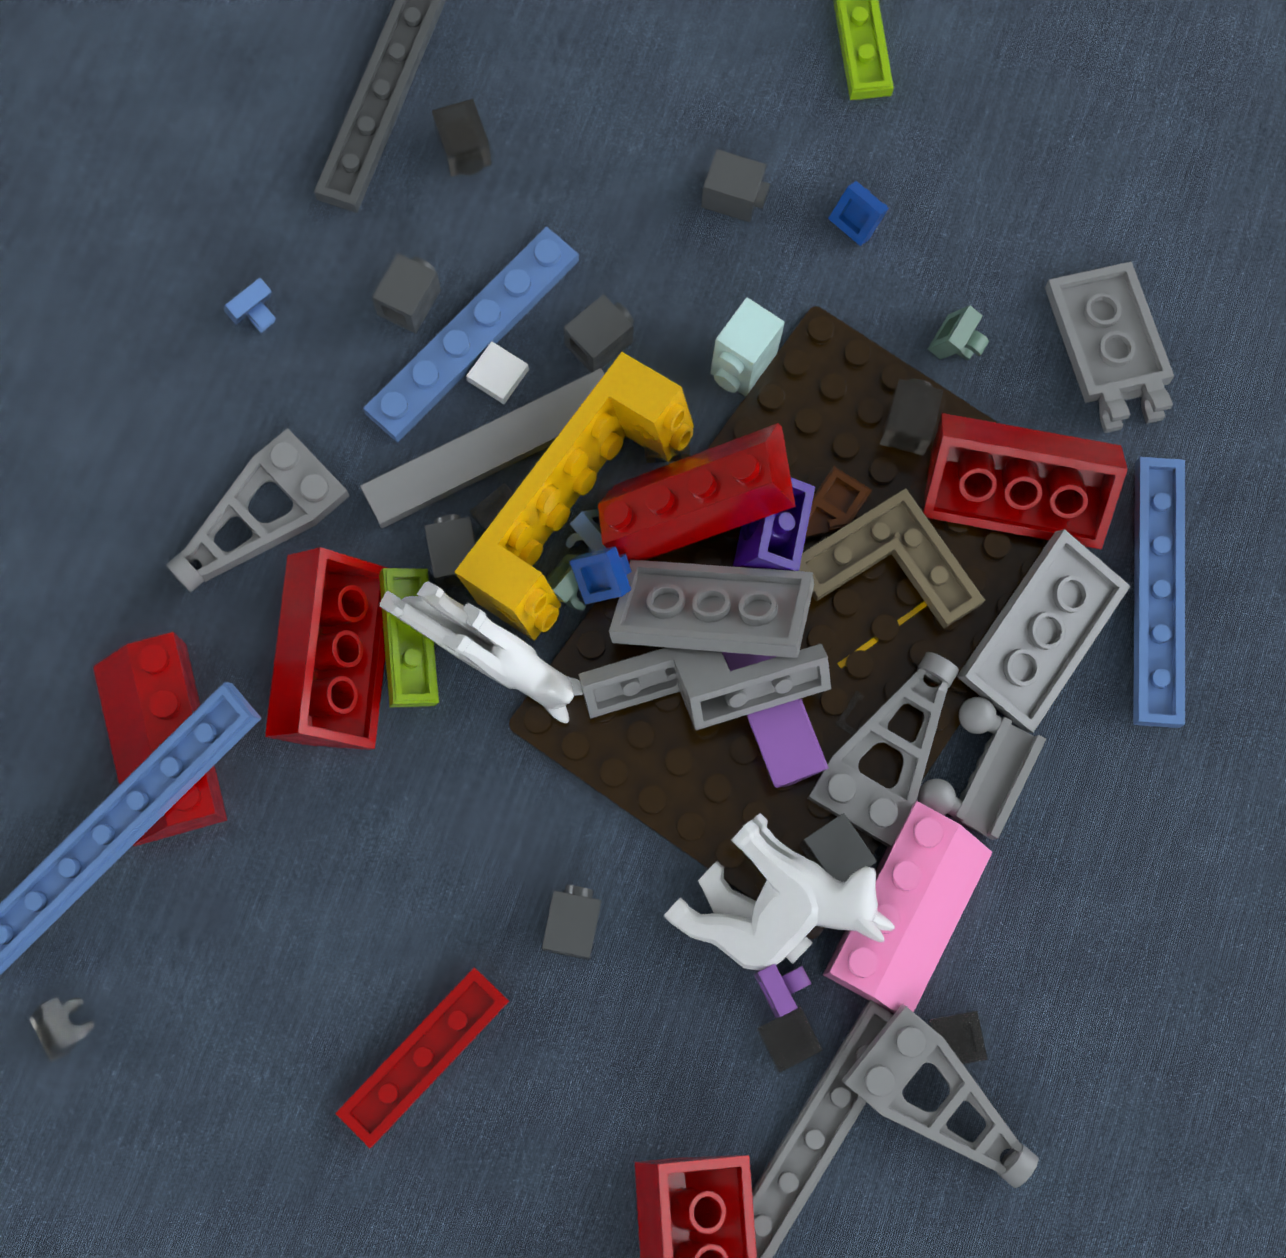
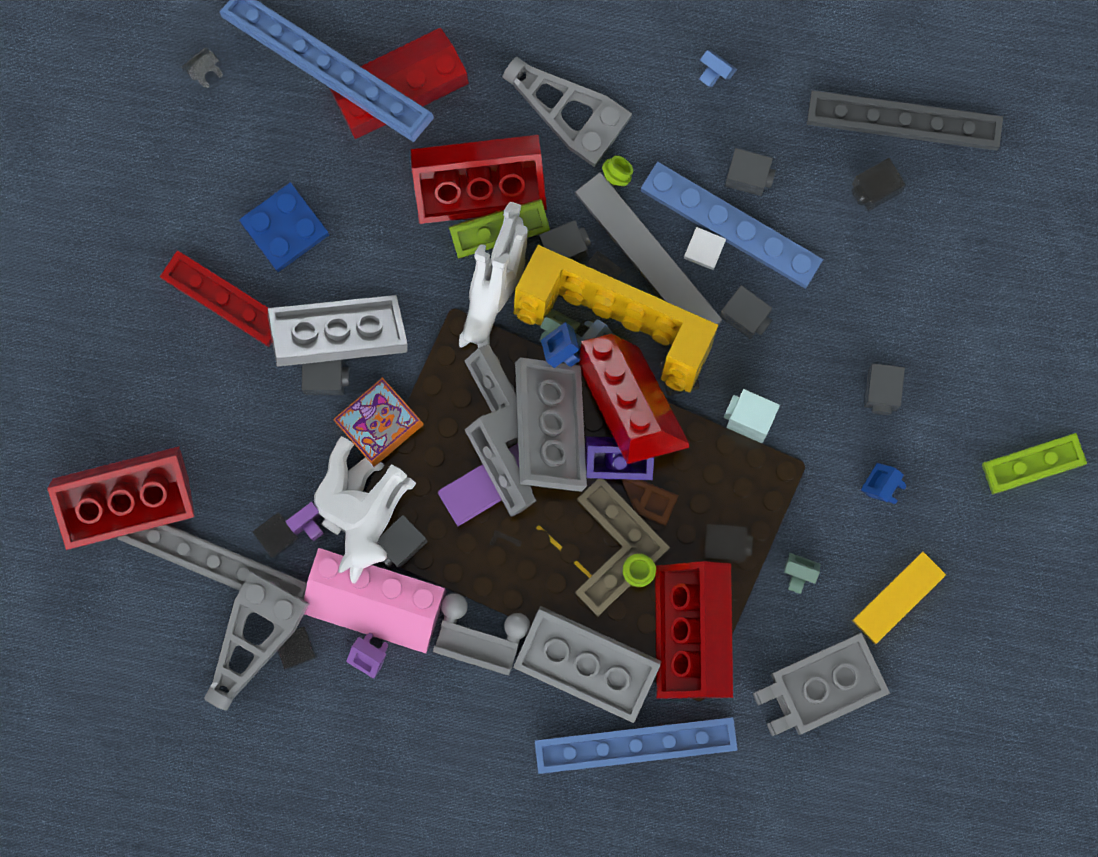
camera: 90 degrees right, 5 degrees up
(334, 946) = (284, 227): none -> blue plate
(364, 461) = (617, 171): none -> lime plate
(512, 891) = (337, 330): none -> light grey plate
(654, 857) = (378, 422): none -> tile
(865, 802) = (442, 554): light grey plate -> none
(934, 530) = (639, 570): none -> lime plate
(990, 933) = (366, 656): none -> medium lavender tile
(1008, 228) = (898, 597): none -> yellow tile

